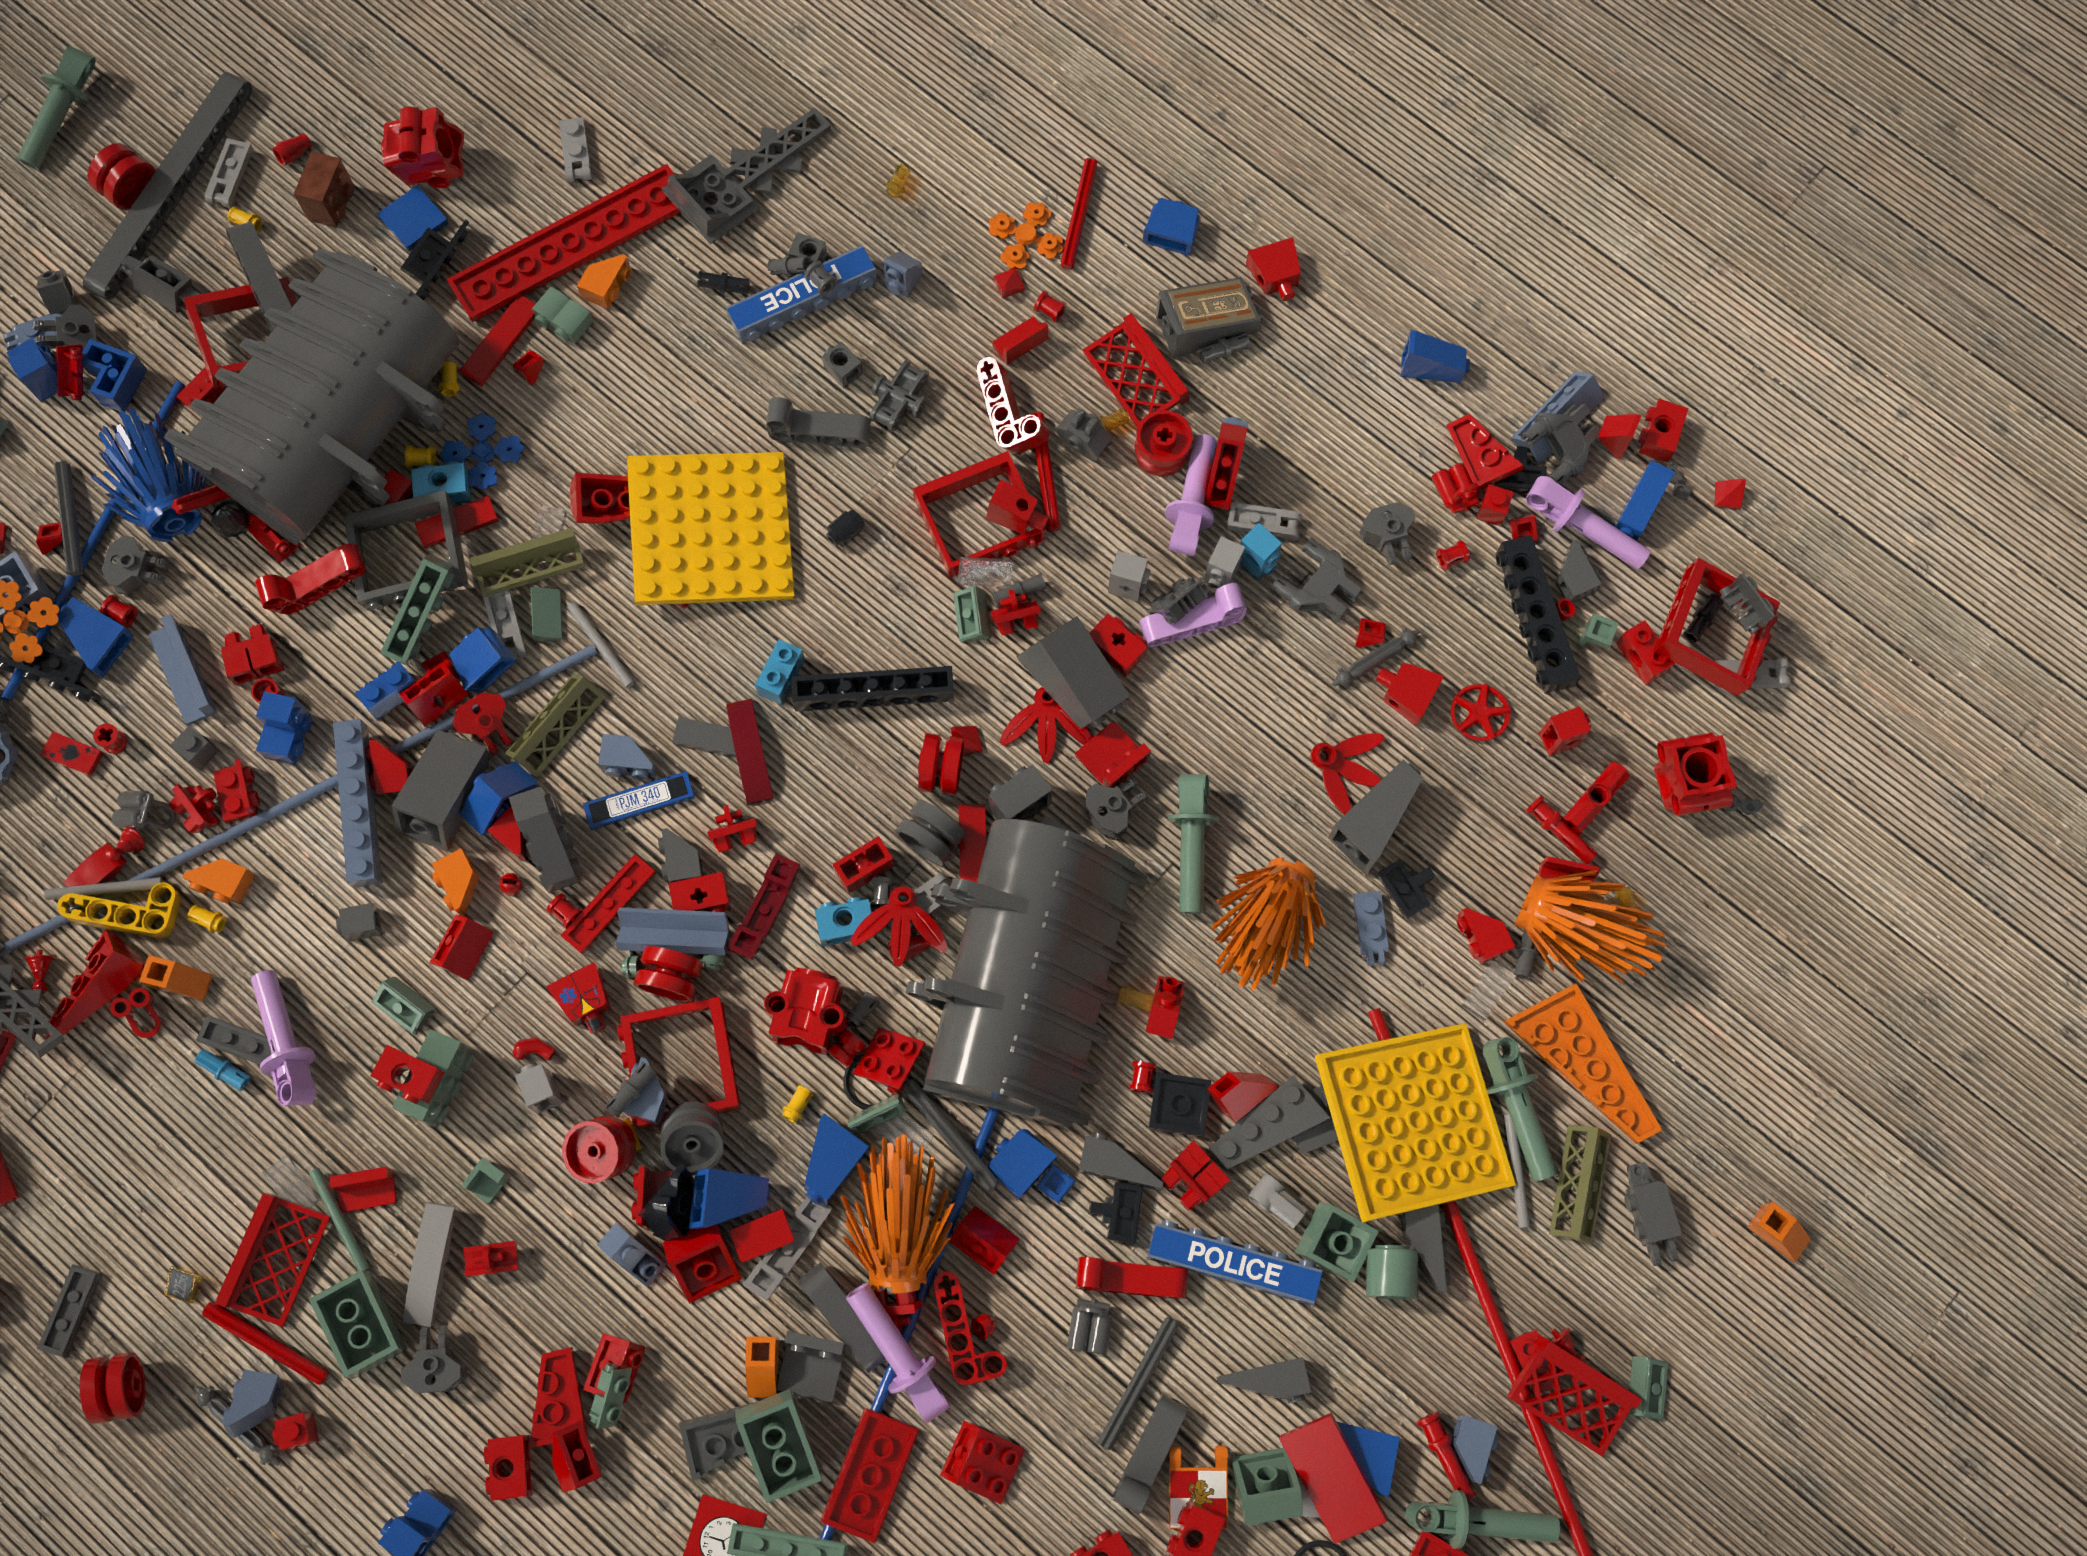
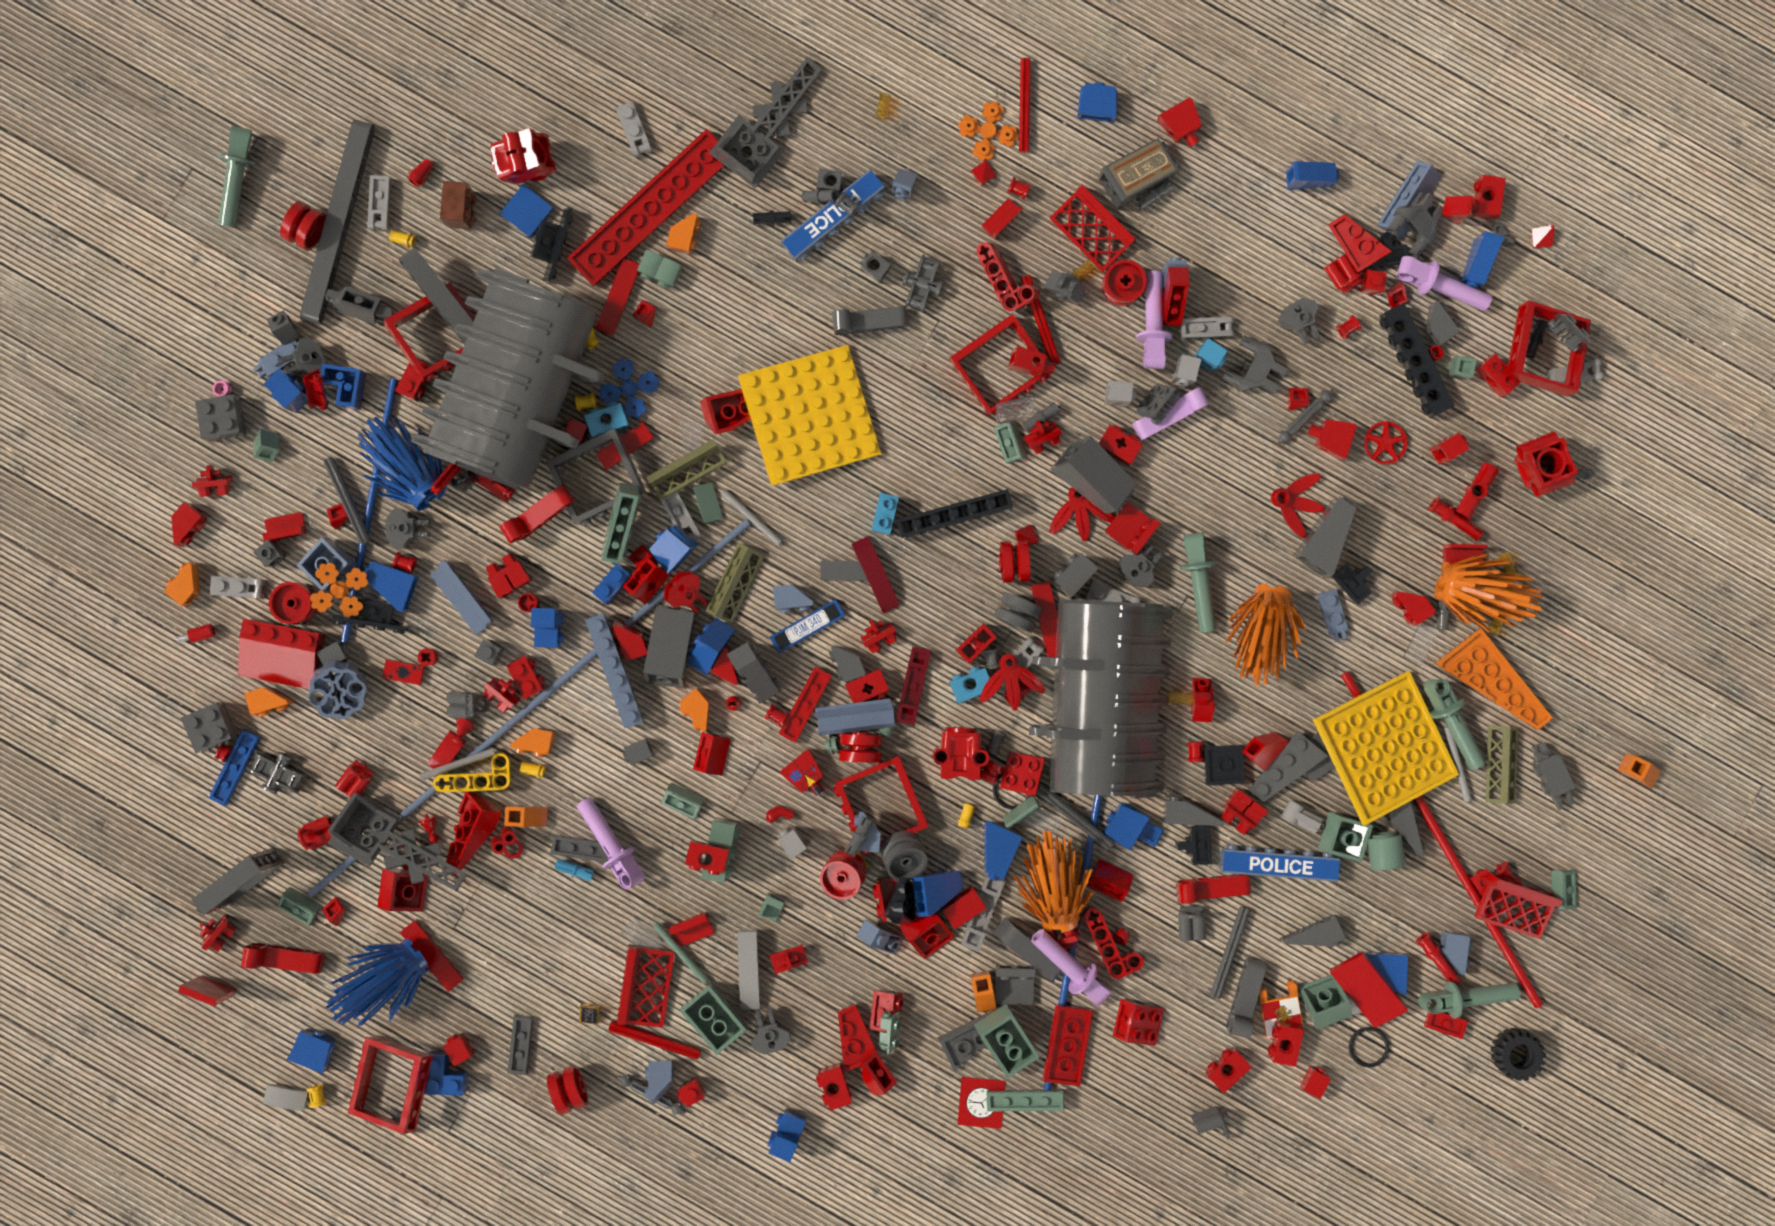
camera: 10 degrees left, 15 degrees up
(845, 528) = (906, 395): black brick -> none
(1598, 985) = (1495, 627): none -> clear yellow pin

